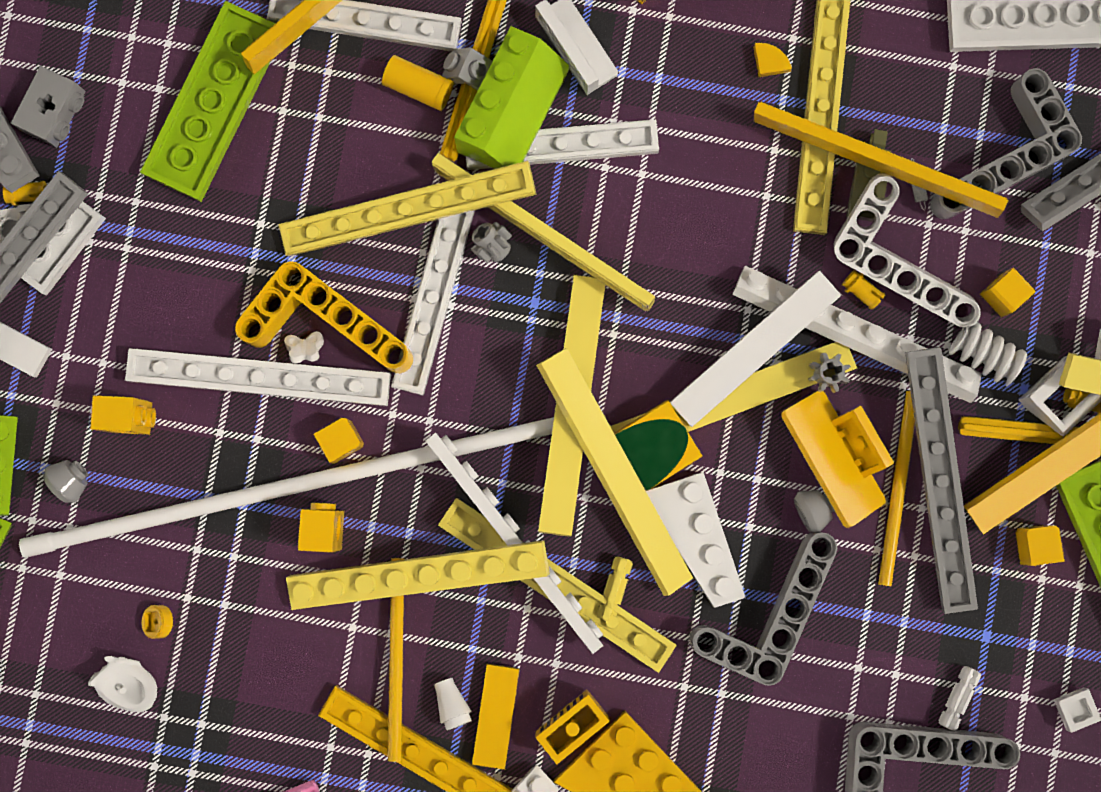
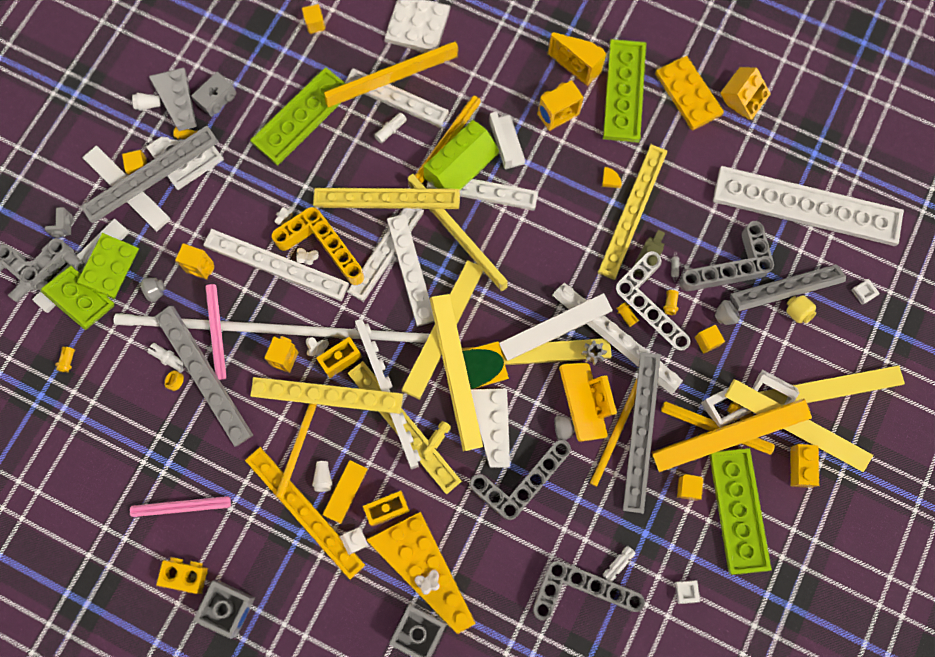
camera: 20 degrees right, 10 degrees down
(125, 684) = (143, 409): white hat -> none
(132, 586) = (166, 357): none -> white pin
(198, 522) = (215, 329): none -> bright pink axle
(202, 599) = (204, 376): none -> light grey plate
(242, 290) = (283, 216): none -> white piece
(339, 440) = (308, 311): yellow piece -> none
(371, 78) = (390, 127): none -> white axle
(372, 497) = (316, 348): none -> white piece
(416, 504) = (339, 357): none -> yellow brick
(417, 82) = (414, 136): yellow pin -> none
(466, 67) = (442, 134): light grey bracket -> none
(485, 318) = (410, 270): none -> white plate
(491, 242) = (426, 229): light grey gear -> none
(880, 160) = (655, 245): yellow tile -> none
(928, 248) = (671, 302): none -> yellow pin
(989, 352) = (689, 369): white piece -> none
(1025, 240) = (727, 313): none -> light grey cone

